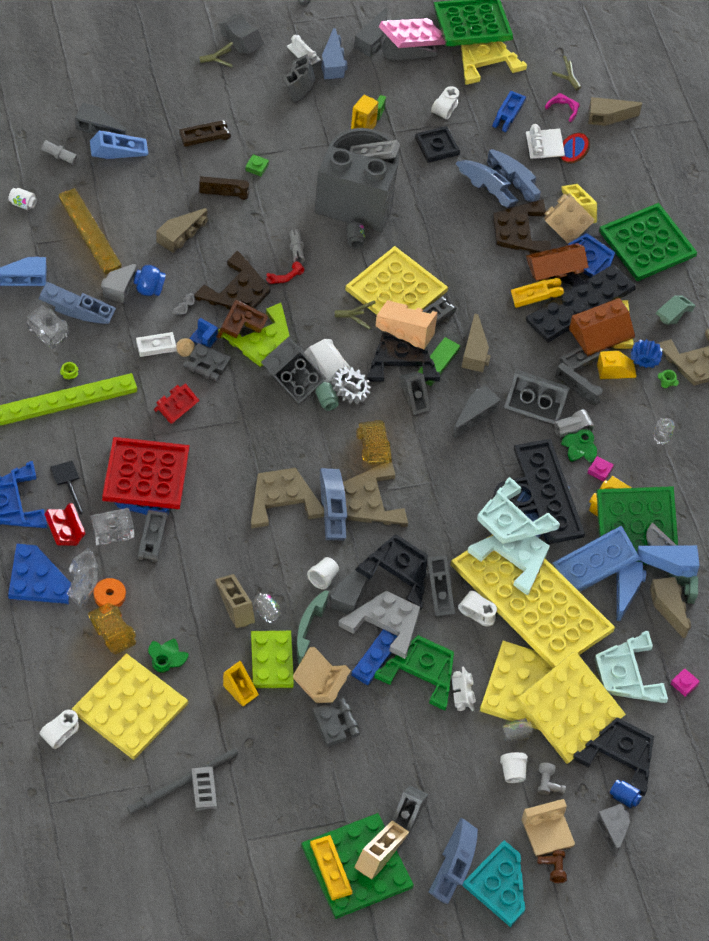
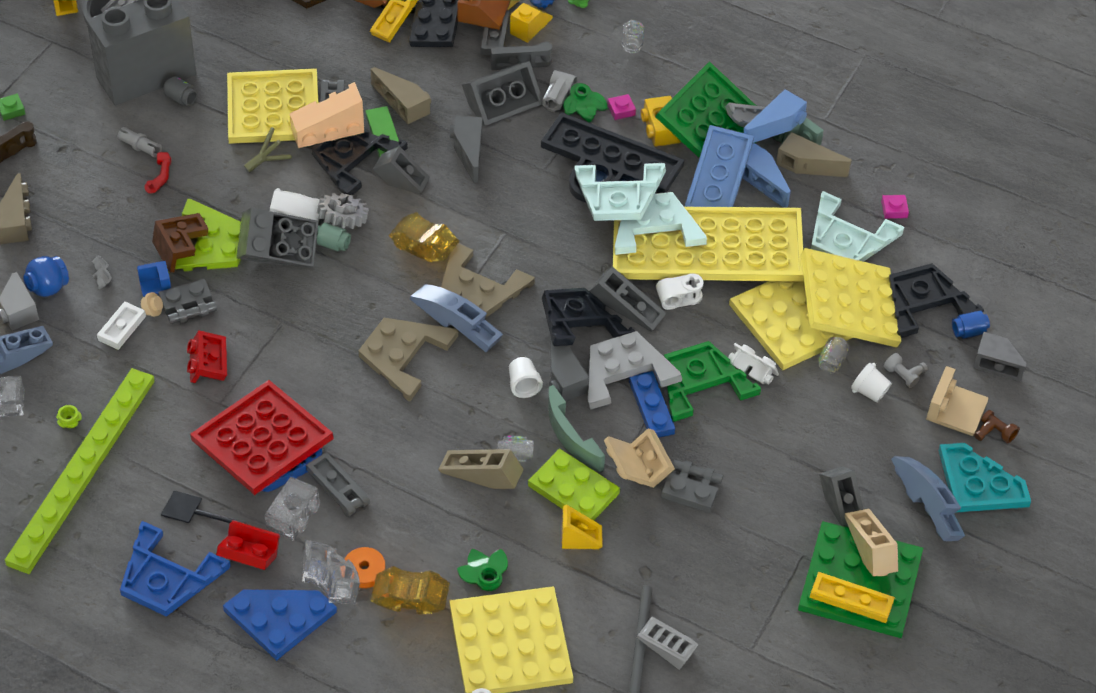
camera: 45 degrees left, 5 degrees down
(245, 287) = (136, 214): dark brown wing -> none

